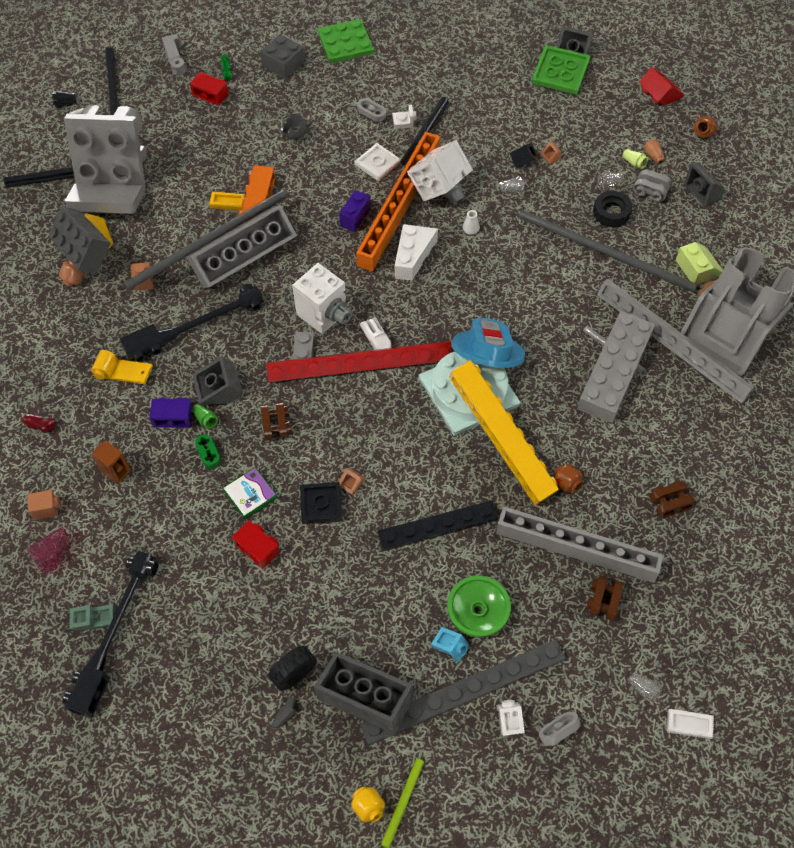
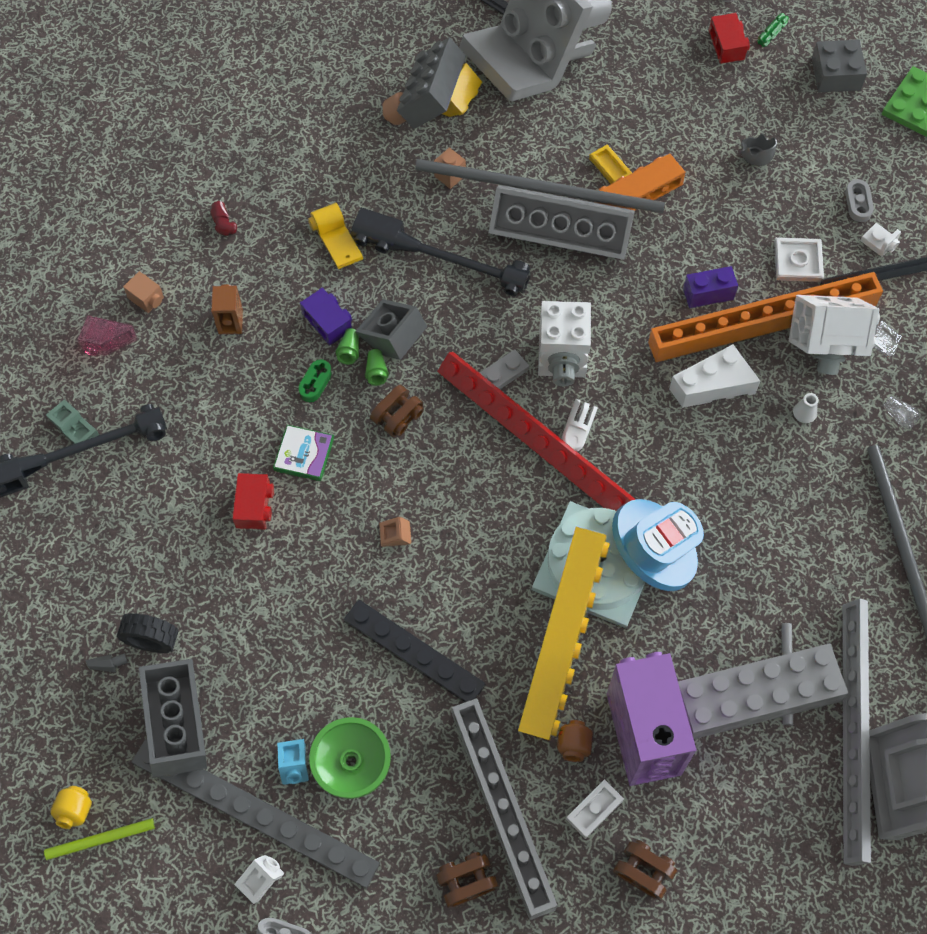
camera: 50 degrees right, 5 degrees up
(235, 412) = (376, 368): none -> bright green cone
(320, 502) = (345, 523): black plate -> none
(594, 423) = (650, 718): none -> medium lavender gear
(615, 499) = (594, 809): none -> white plate

